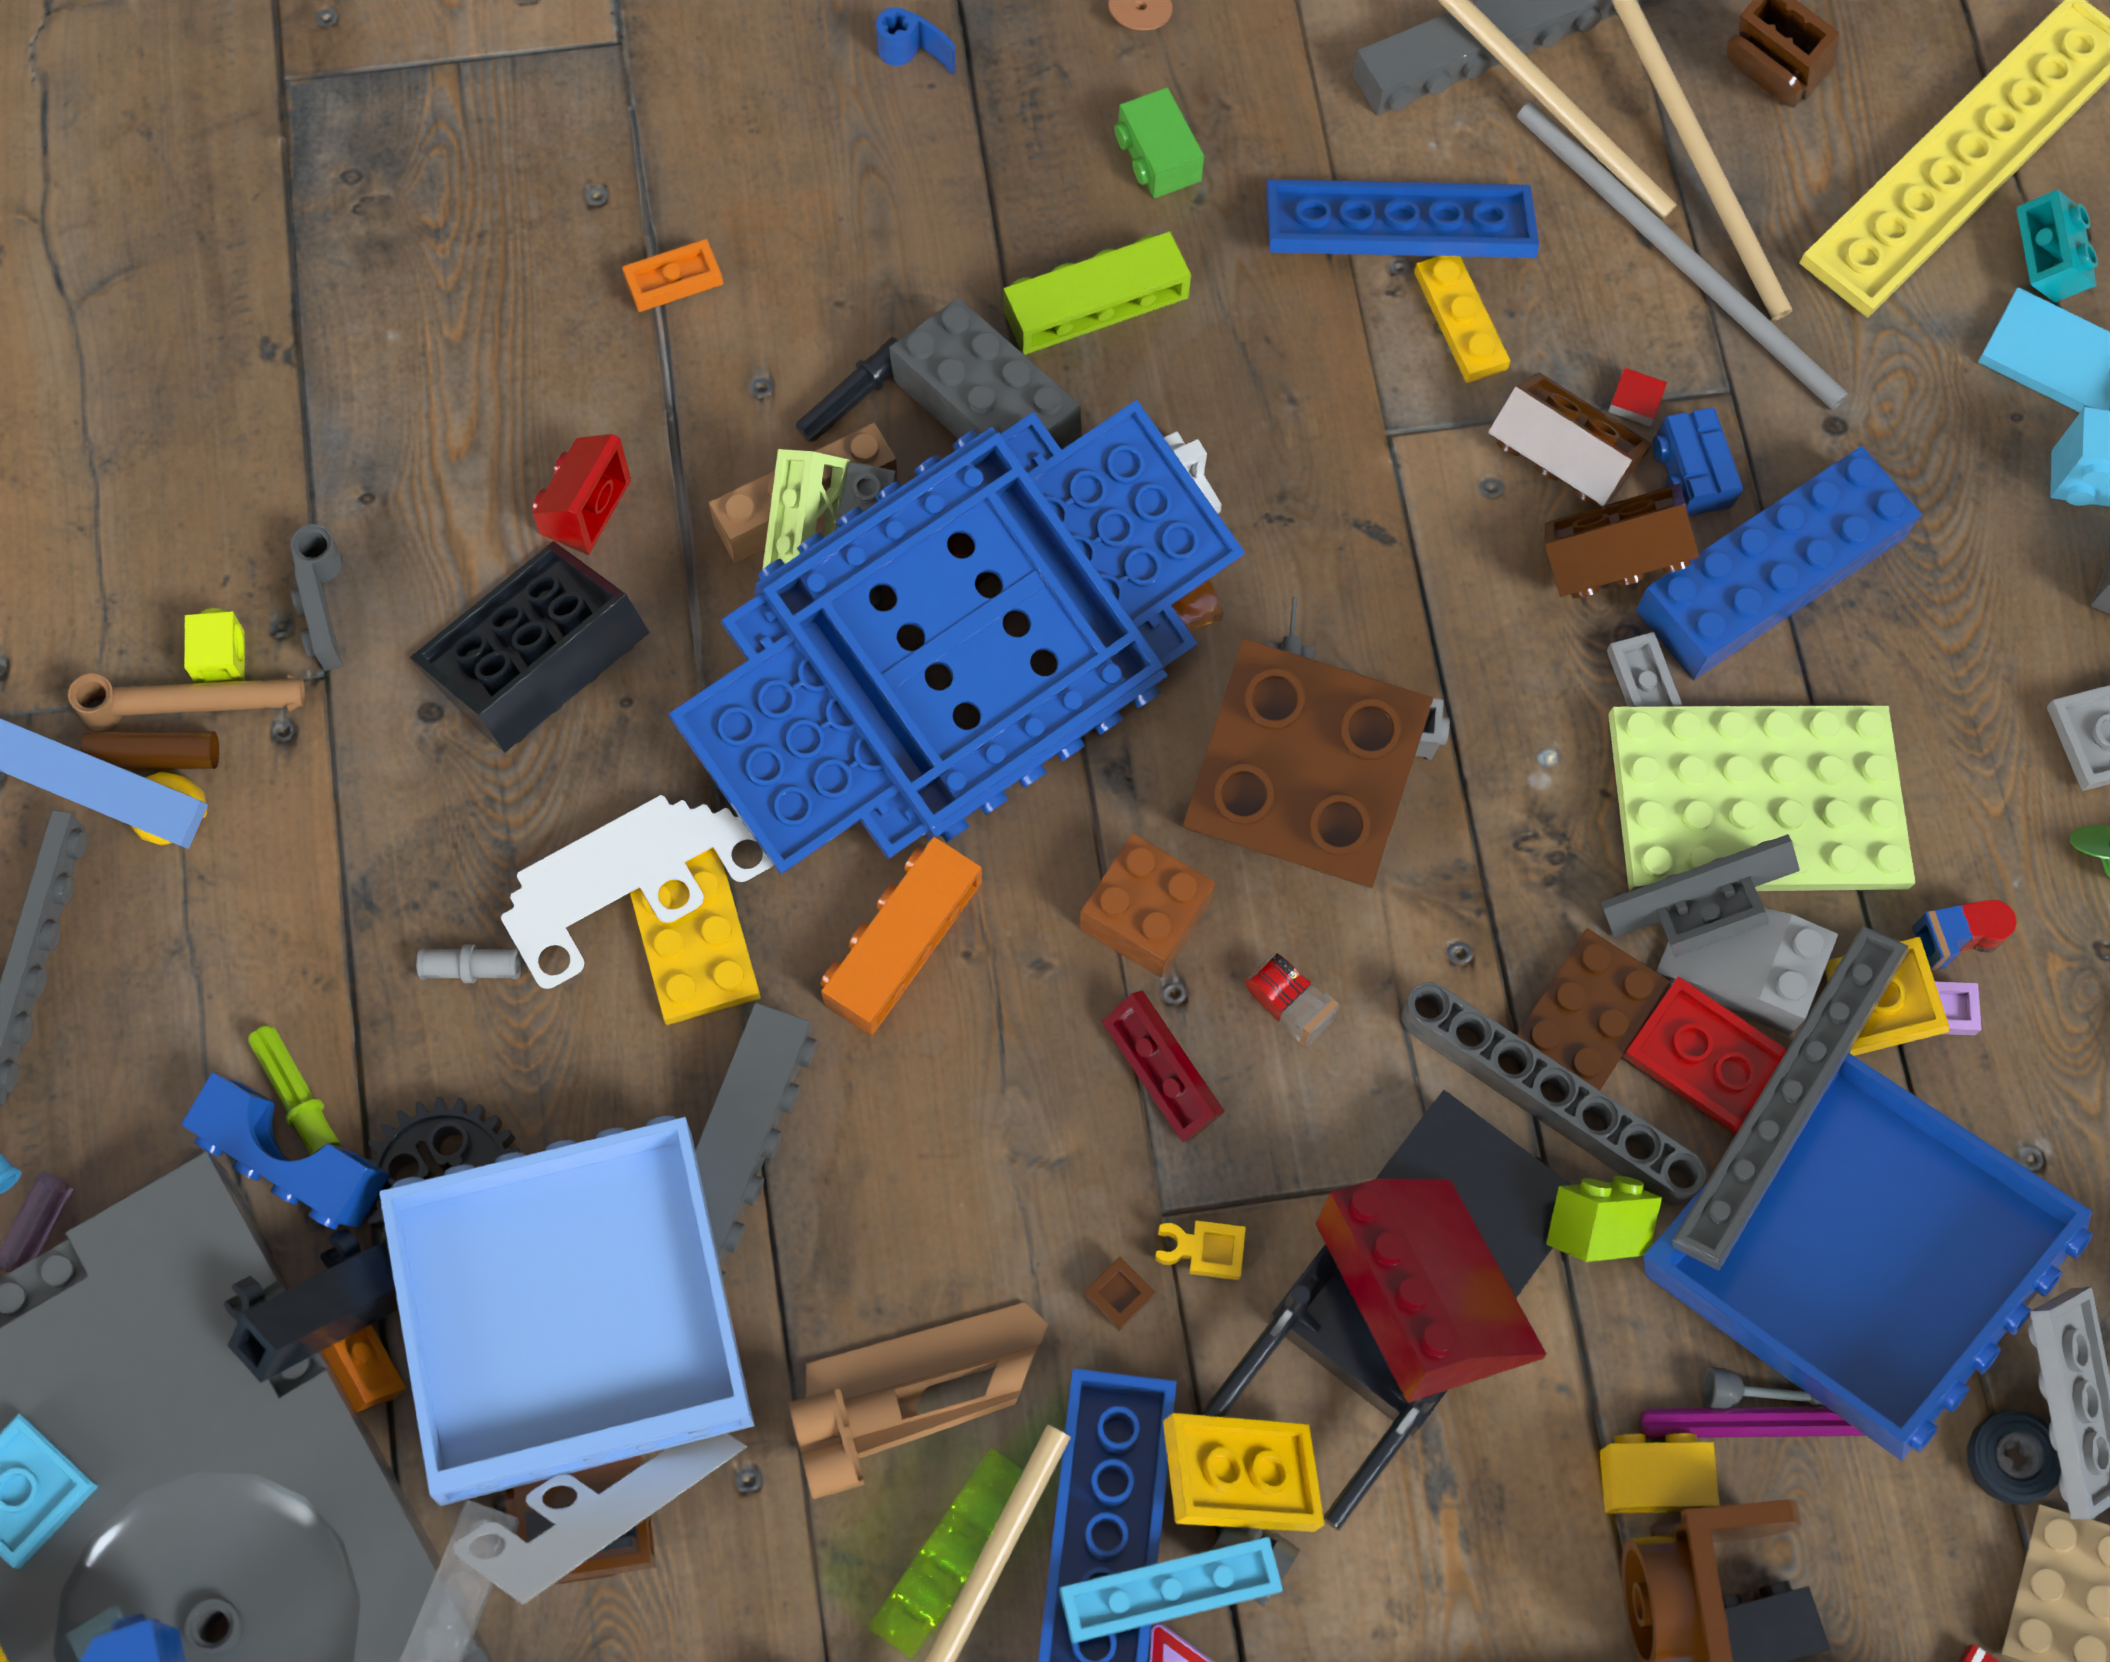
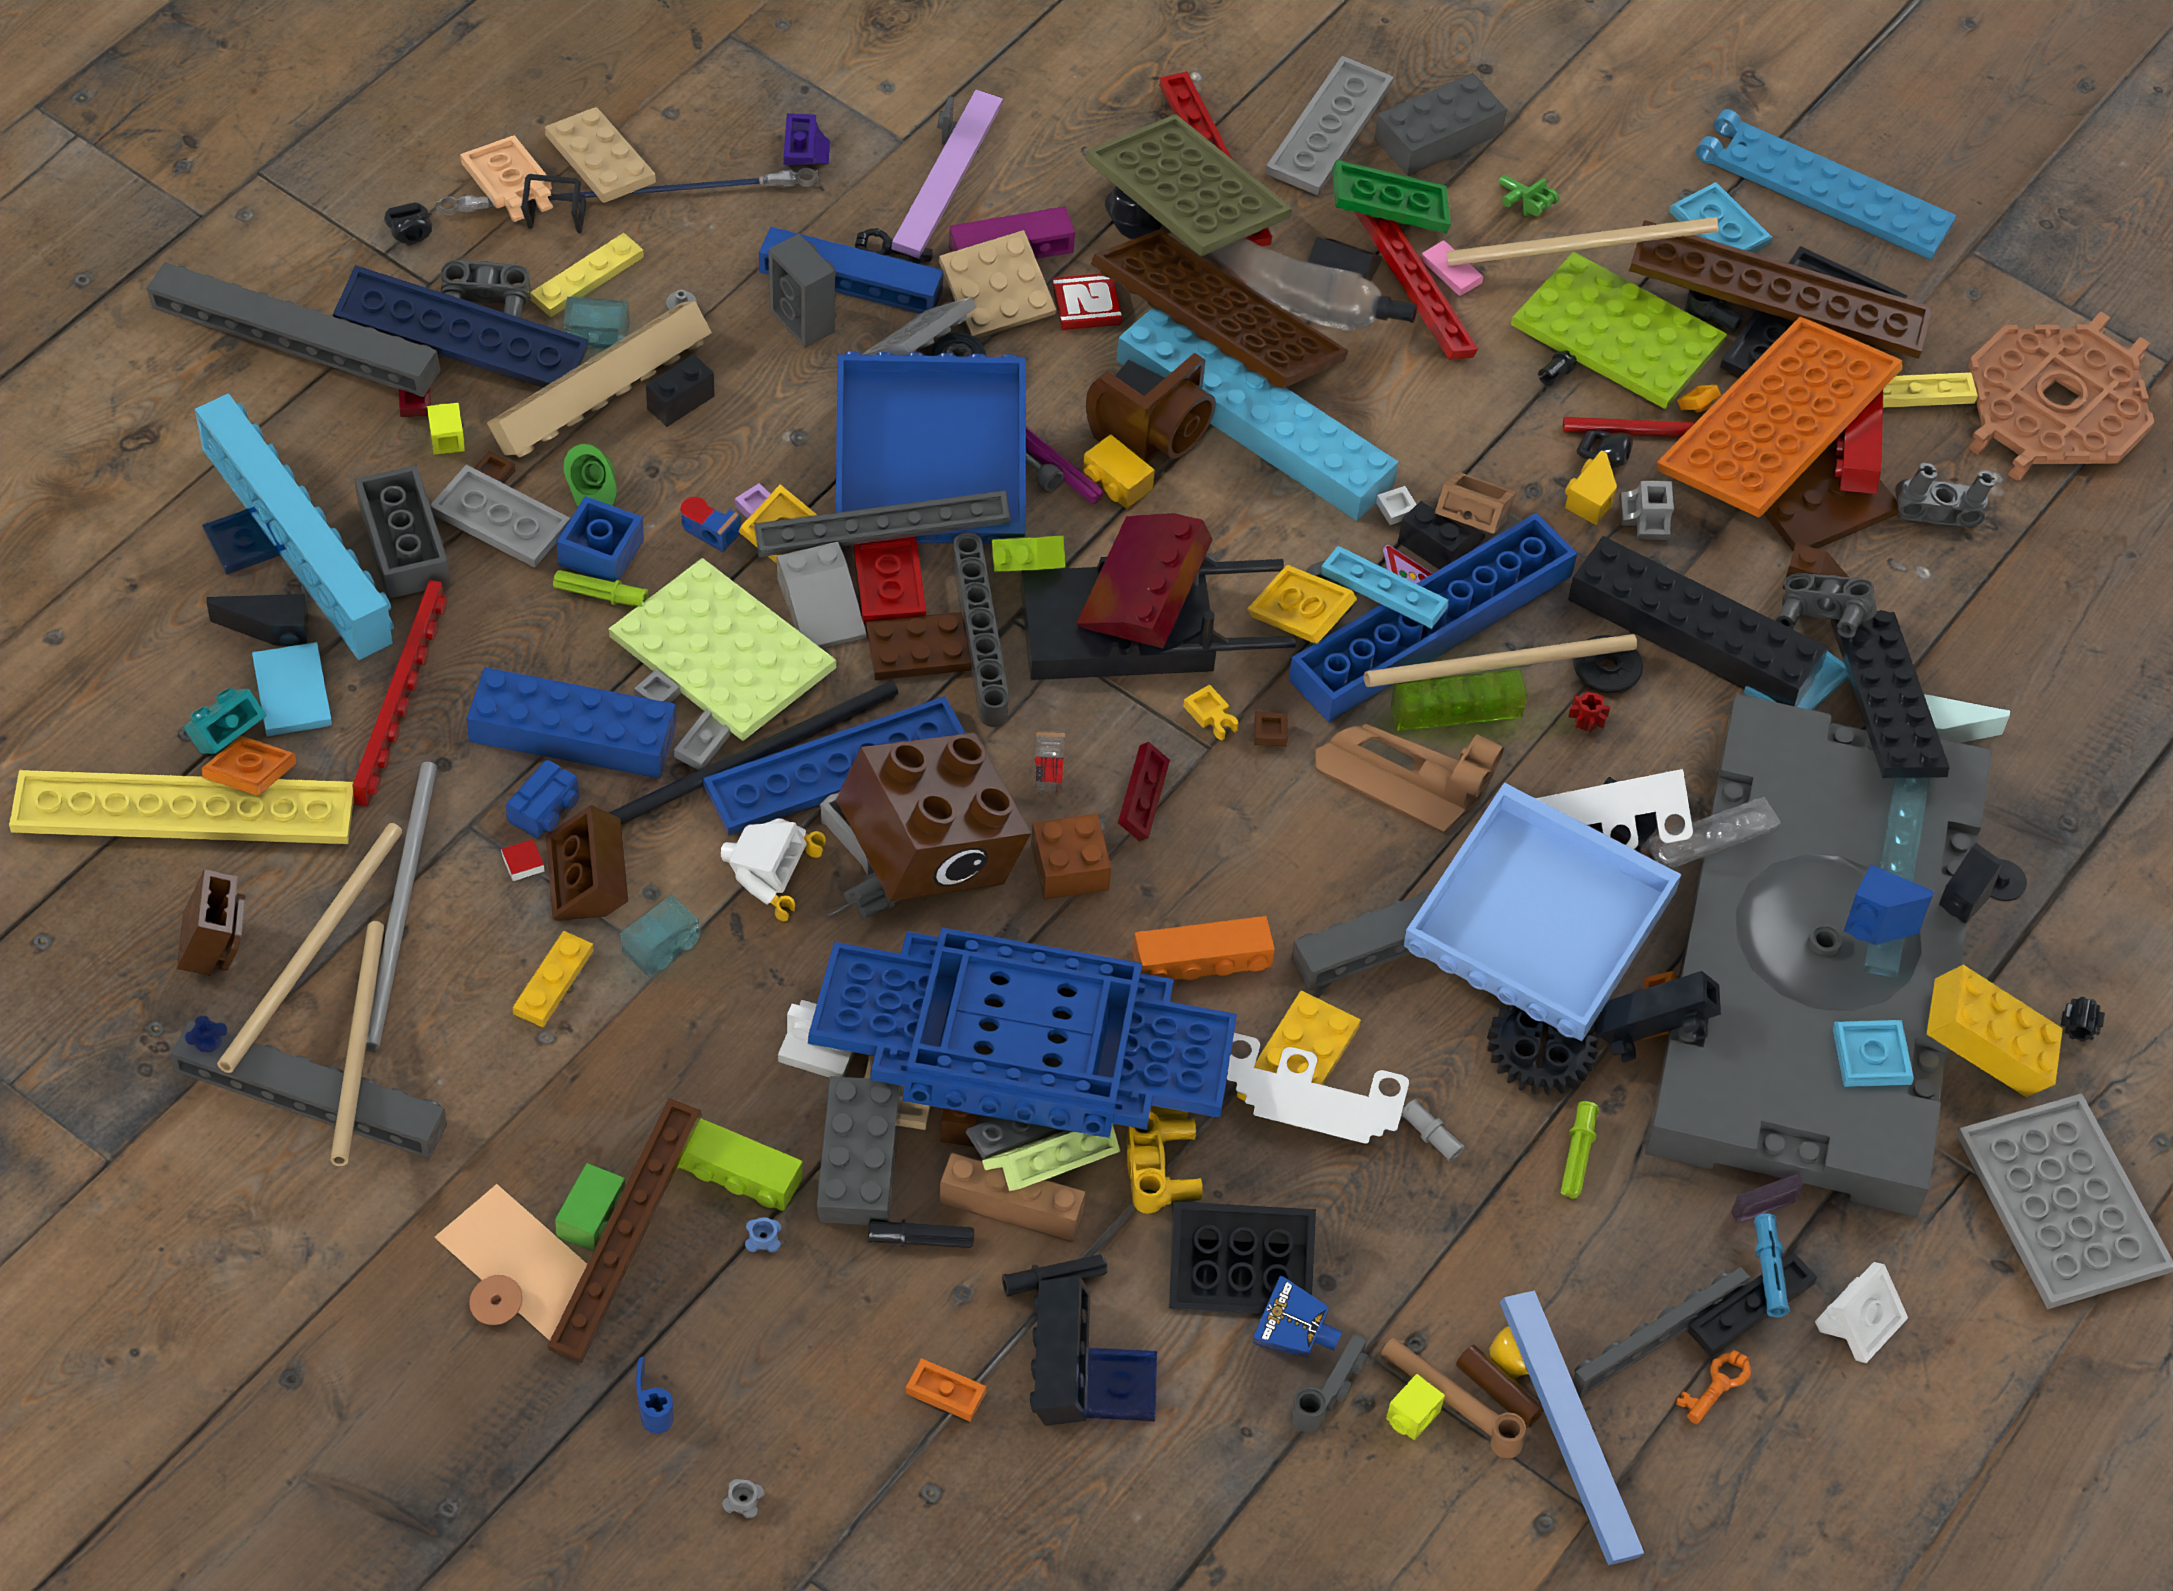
camera: 135 degrees left, 15 degrees down
(239, 1123) = (1603, 1072): blue arch -> none
(406, 616) = (1295, 1322): none -> blue torso
(525, 429) = (1121, 1384): none -> clear blue tile
(583, 492) = (1132, 1299): red slope -> none
(600, 390) = (1061, 1351): none -> black brick
(699, 450) = (1029, 1279): none -> black axle
(703, 643) = (1147, 1164): none -> yellow piece
(745, 32) = (743, 1488): none -> light grey plate
(990, 252) = (763, 1226): none -> medium blue plate
(1102, 139) = (624, 1231): none -> reddish brown plate
(1198, 61) = (507, 1240): none -> light nougat sticker
(1401, 218) = (522, 1045): blue plate -> none
(1419, 436) = (660, 935): none -> clear light blue brick
(1423, 602) = (768, 857): none -> white torso
(1489, 786) = (816, 769): none -> blue plate
(1577, 763) = (757, 751): none -> black piece
(1620, 542) = (639, 788): reddish brown slope -> none
(1707, 900) = (816, 616): dark grey bracket -> none
(1754, 683) = (657, 687): none -> light grey plate
(1939, 753) = (611, 591): none -> lime axle
(1969, 440) = (397, 701): none -> red plate
(1975, 232) = (249, 765): none -> orange tile
(2024, 781) = (600, 540): none -> blue brick

